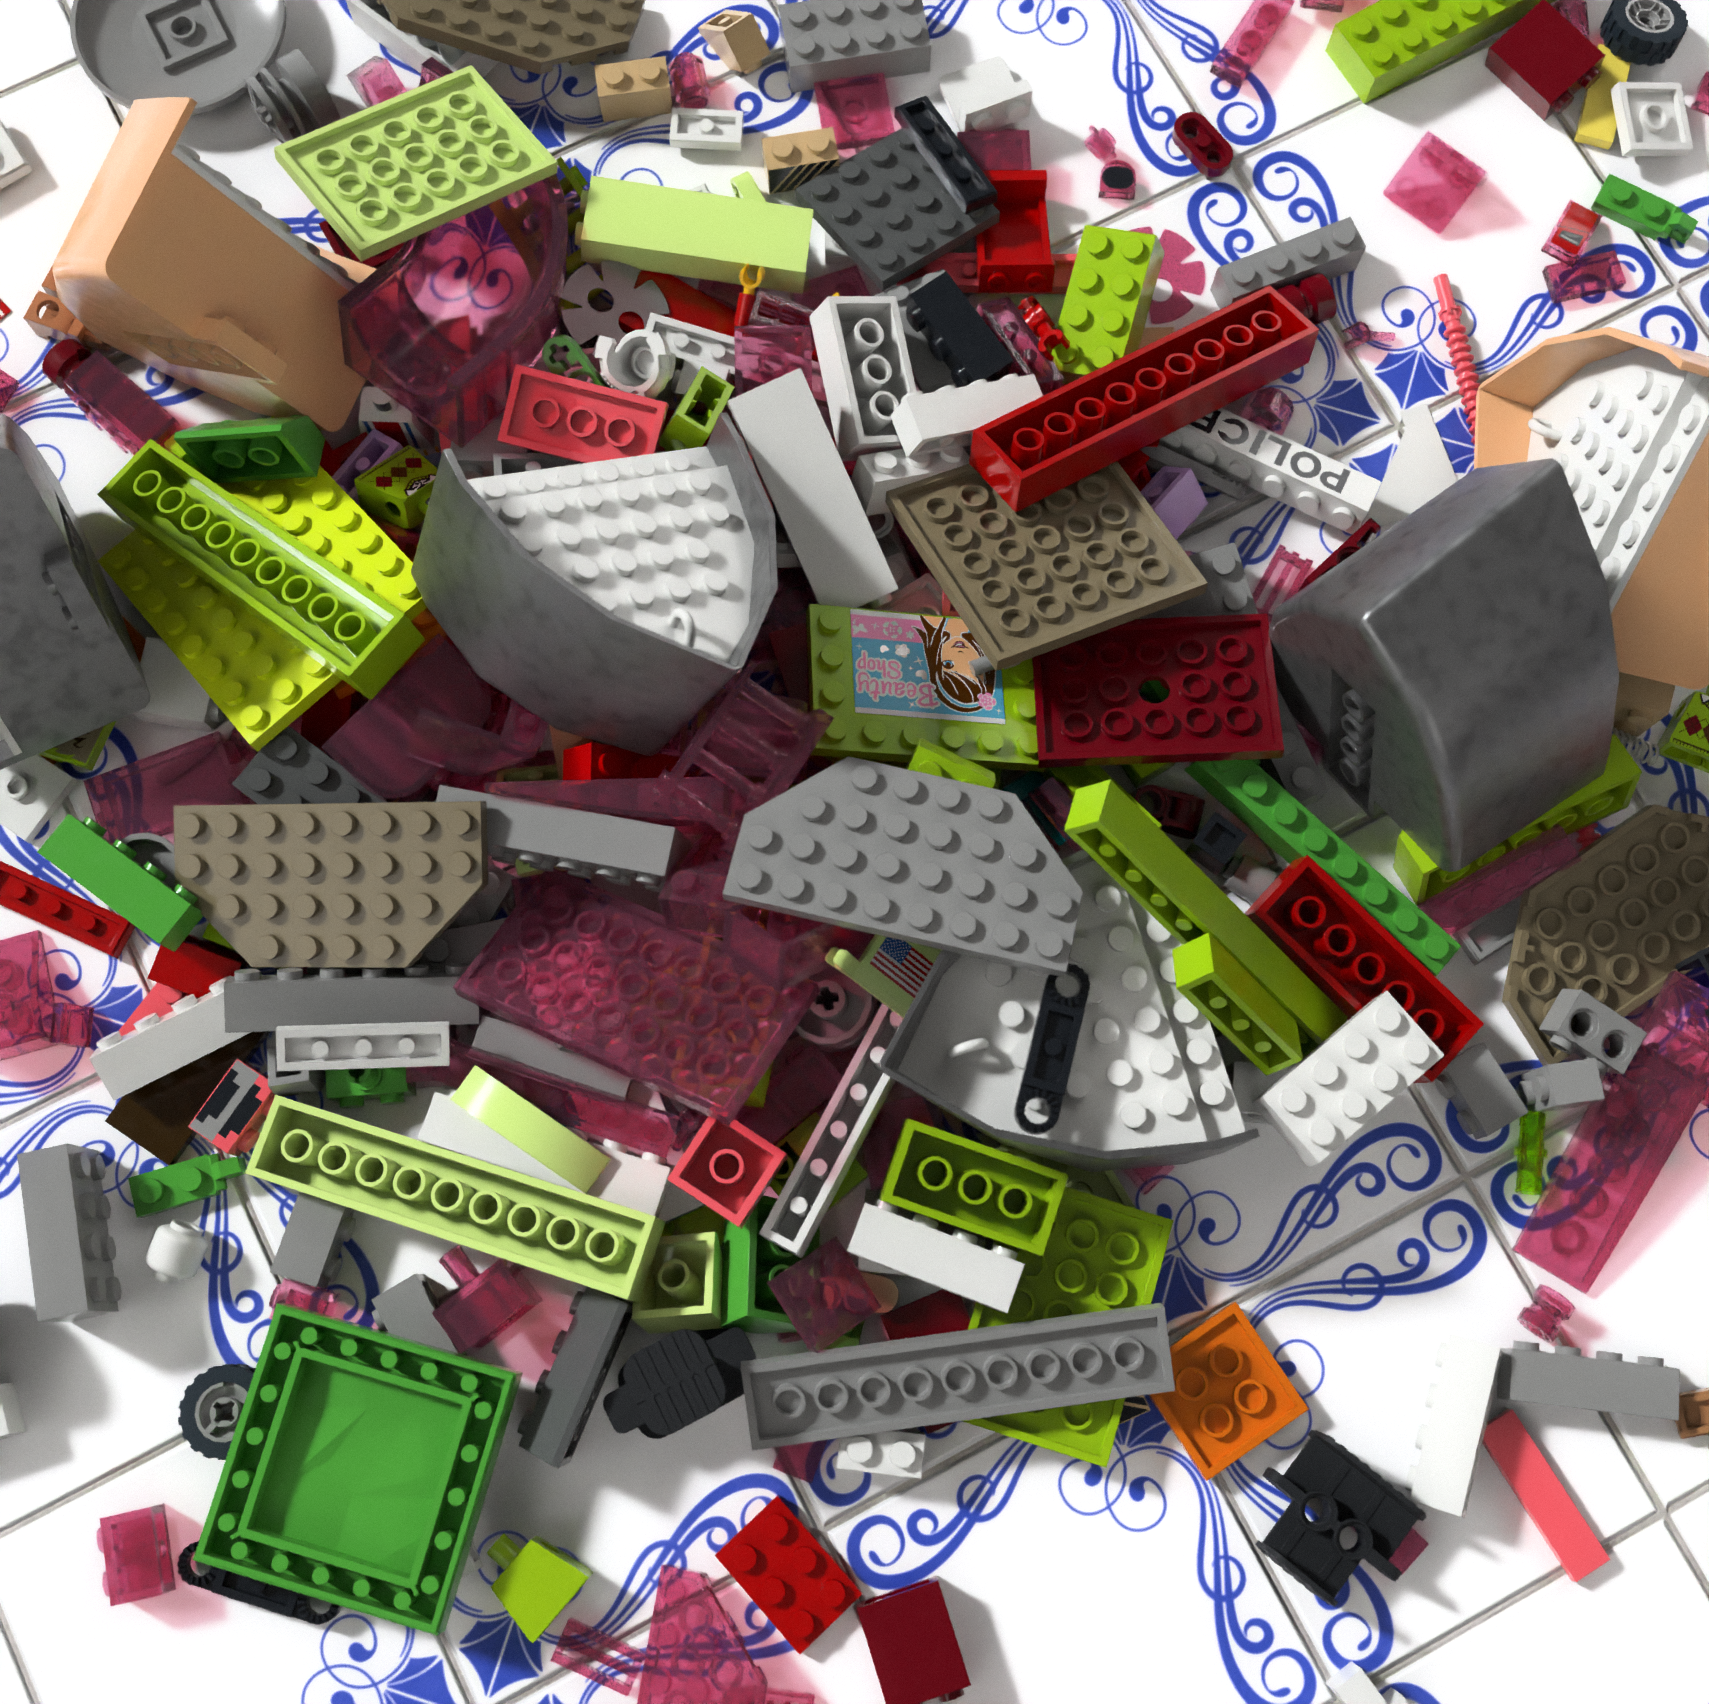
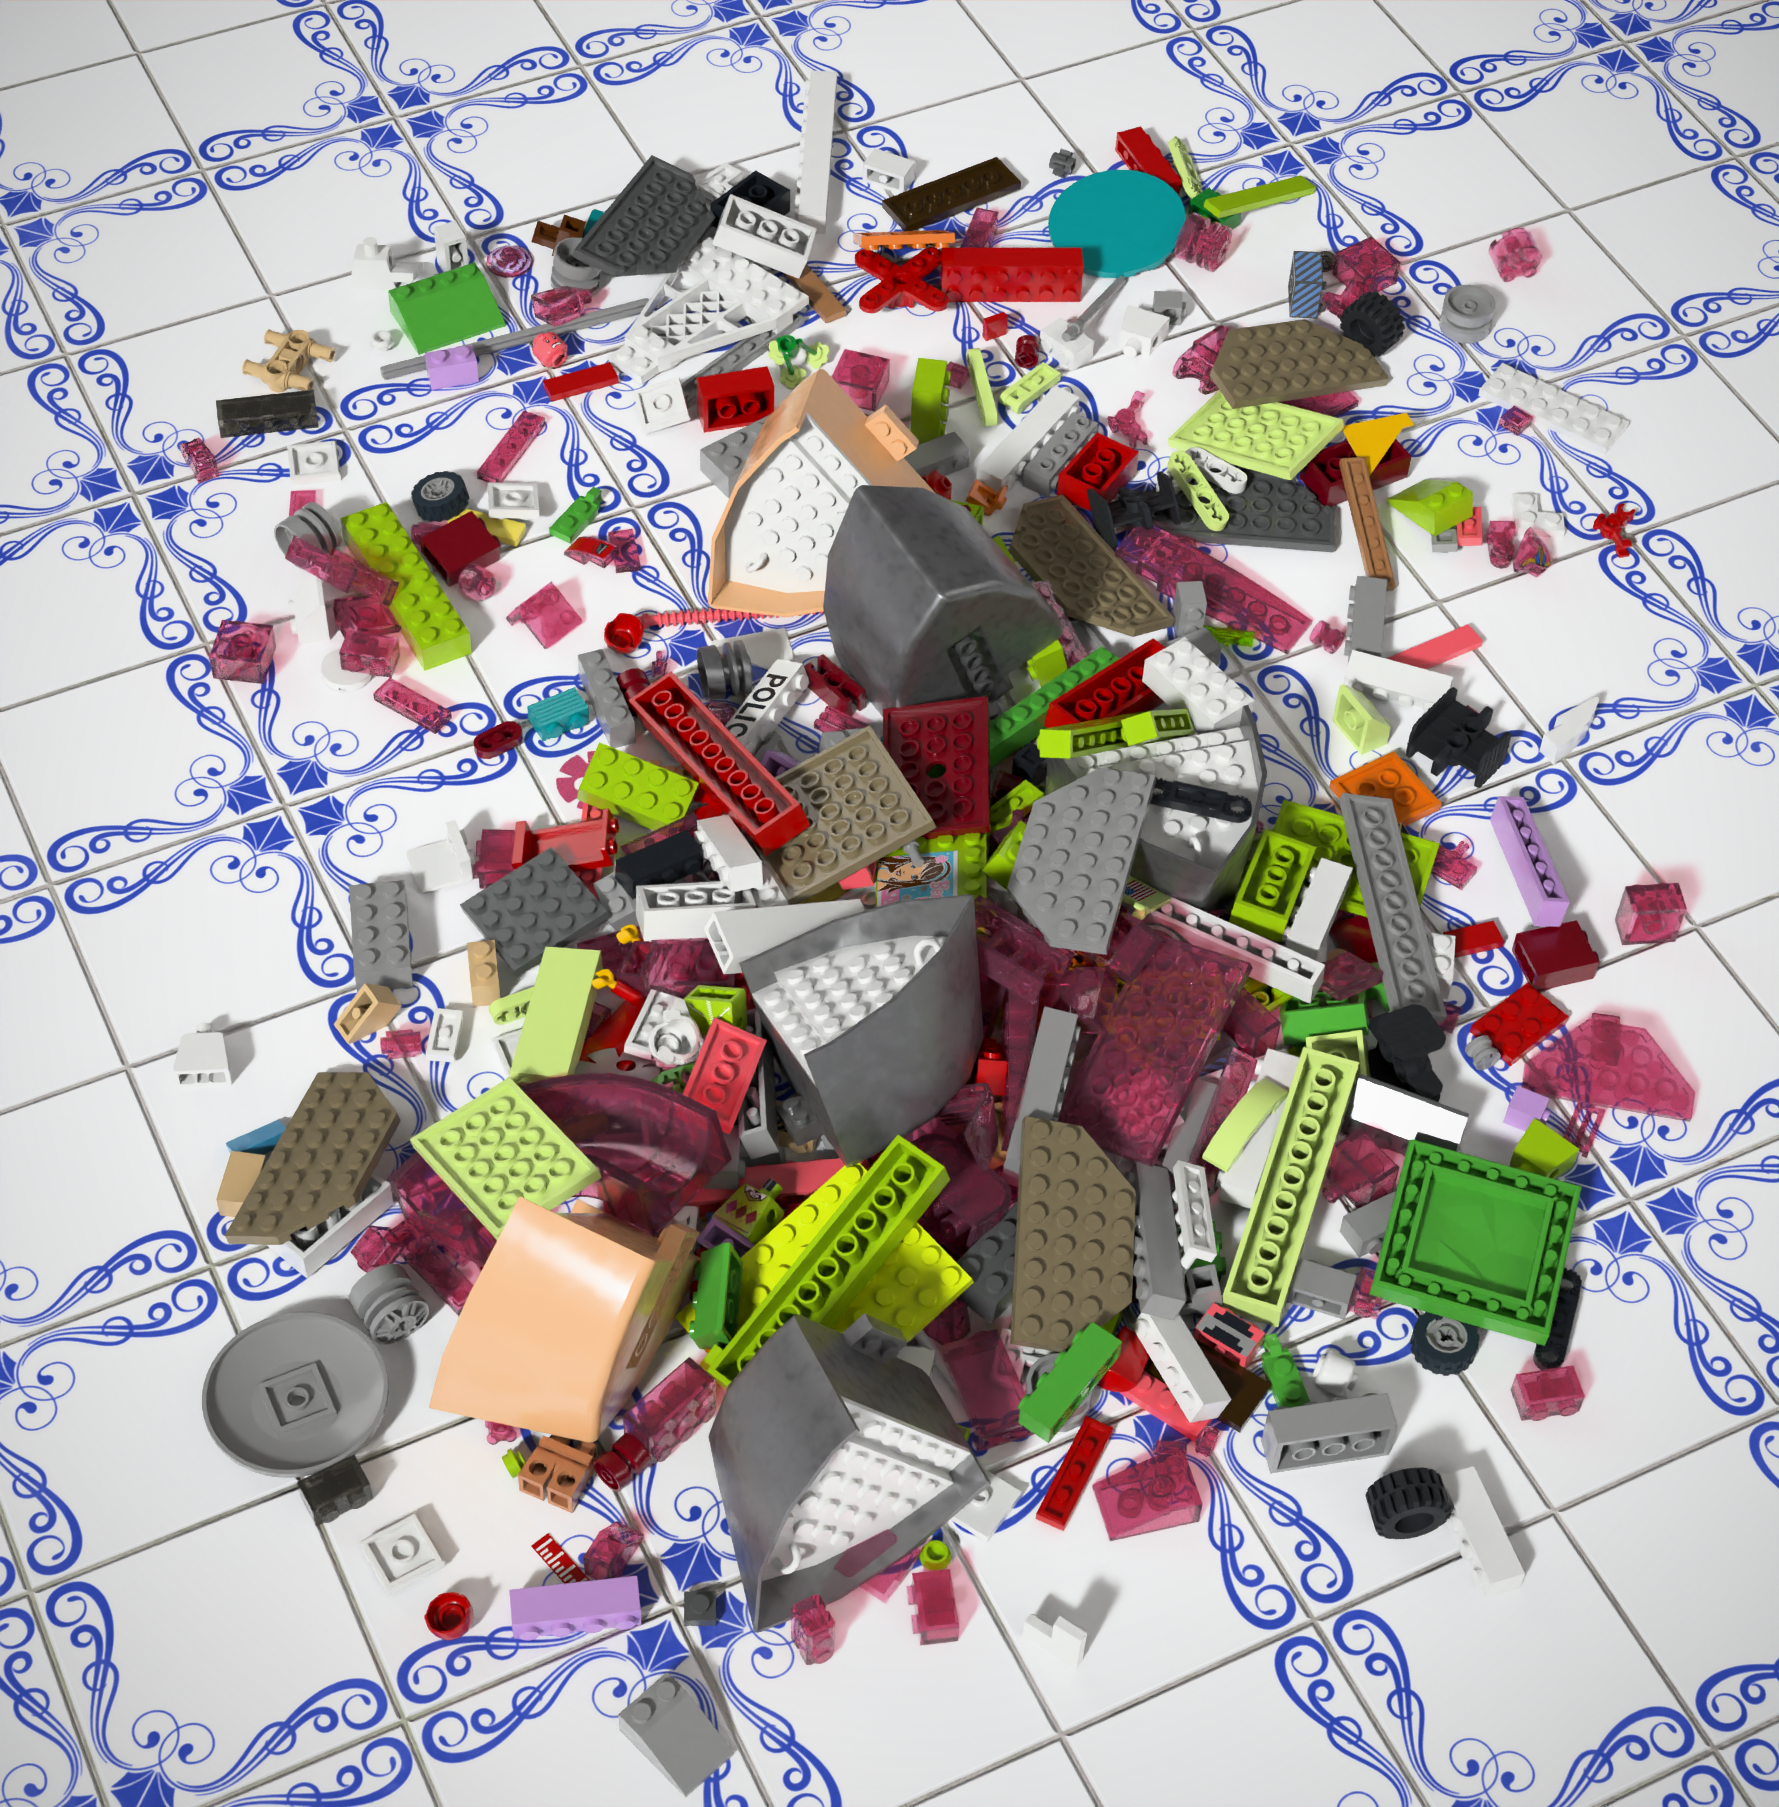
camera: 90 degrees left, 25 degrees down
(62, 81) = (335, 1490): none -> clear smoke brick
(83, 1074) = (1206, 1440): none -> clear pink tile
(617, 1570) = (1525, 1107): none -> lavender brick
(633, 89) = (405, 1077): tan brick -> none
(691, 1120) = (1233, 1040): clear pink hand -> none
(722, 1509) = (1482, 1052): none -> light grey wheel
(728, 1169) = (1271, 1001): coral brick -> none
(855, 109) = (438, 945): clear pink tile -> none
(946, 155) = (500, 875): black tile -> none
(946, 1513) = (1476, 938): none -> red tile
(1042, 326) = (650, 823): red piece -> none
(1078, 1614) = (1529, 861): none -> lavender brick
(1092, 1489) = (1452, 867): none -> clear pink plate
(1101, 143) = (491, 796): clear pink plate -> none
(1117, 181) = (519, 792): tile -> none
(1254, 211) = (558, 714): none -> teal brick
(1348, 410) = (724, 670): none -> flat silver wheel
(1367, 1359) = (1360, 720): none -> yellowish green slope
(1410, 281) = (624, 633): none -> red hair
(1485, 89) = (477, 582): none -> clear pink head
(1594, 1026) = (1154, 591): light grey brick -> none

